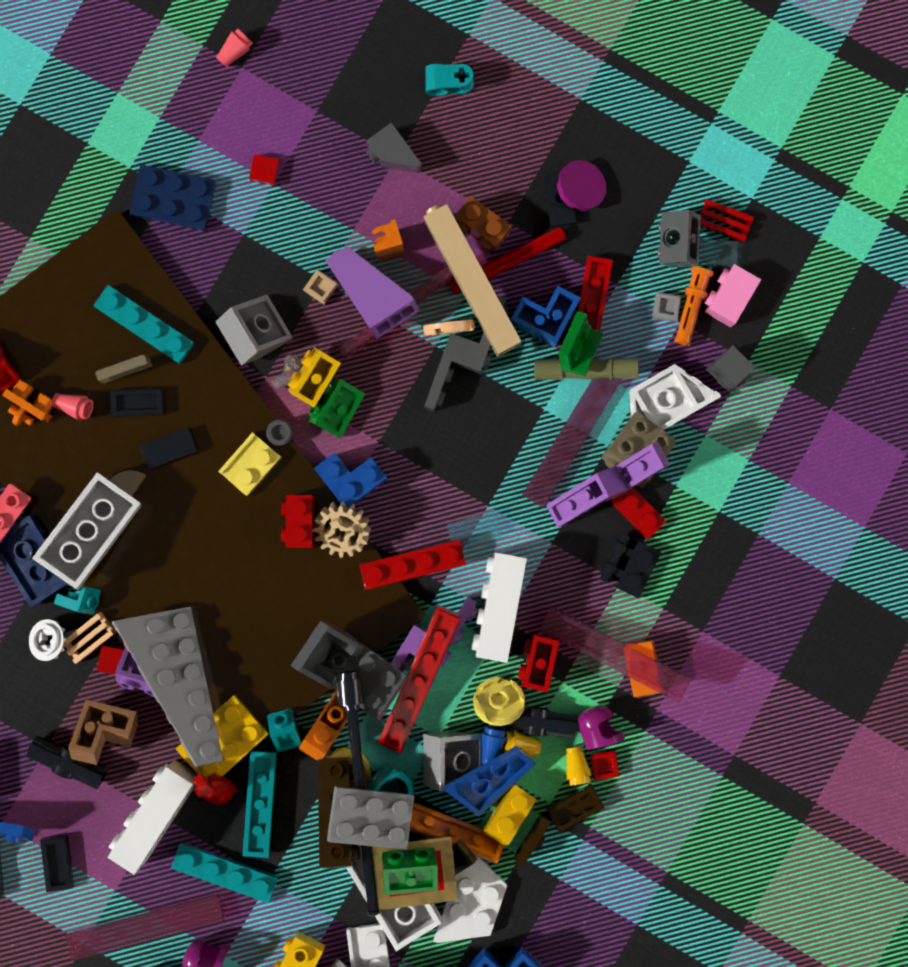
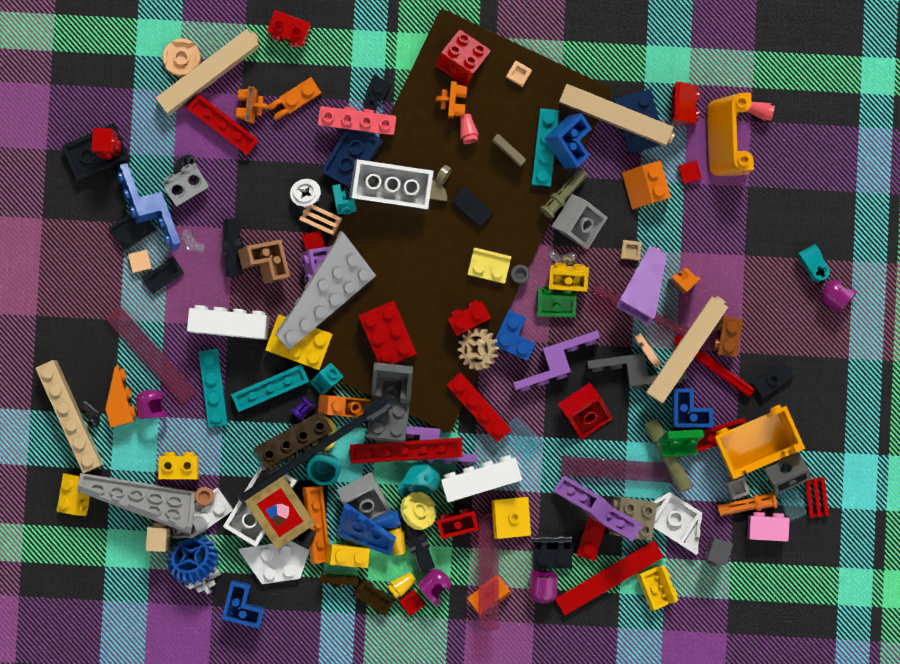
camera: 65 degrees right, 0 degrees up
(25, 882) = (140, 261): none -> light nougat tile
(35, 810) = (190, 242): none -> clear arm
(39, 310) = (518, 73): none -> light nougat tile
(111, 462) = (443, 174): none -> dark tan tile
(137, 402) = (491, 170): black tile -> none
(149, 219) = (617, 115): none -> tan brick
(149, 295) = (566, 143): none -> blue brick
(178, 133) = (684, 104): none -> red slope
(213, 340) = (558, 199): none -> olive pin
(214, 788) = (266, 353): red hinge -> none
(252, 227) = (646, 185): none -> orange slope
(260, 115) = (722, 136): none -> light orange windscreen
(267, 629) = (387, 334): none -> red brick
(305, 776) = (303, 409): none -> dark purple bush
(349, 951) = (204, 496): none -> nougat tile
(370, 817) = (302, 465): light grey plate -> none
(392, 151) = (746, 251): dark grey slope -> none
(406, 442) = (556, 361): none -> medium lavender bracket
(410, 871) = (280, 508): green bracket -> none
(461, 679) = (419, 479): none -> teal helmet
(483, 439) = (585, 411): none -> red slope
(500, 71) = (837, 296): none -> magenta helmet
(564, 594) = (511, 517): none -> yellow plate
(581, 185) = (789, 389): magenta tile -> none
(626, 252) = (758, 442): none -> light orange windscreen
(670, 599) = (543, 589): none -> magenta helmet
(694, 513) = (609, 577): none -> red tile
(736, 462) = (657, 587): none -> yellow bracket

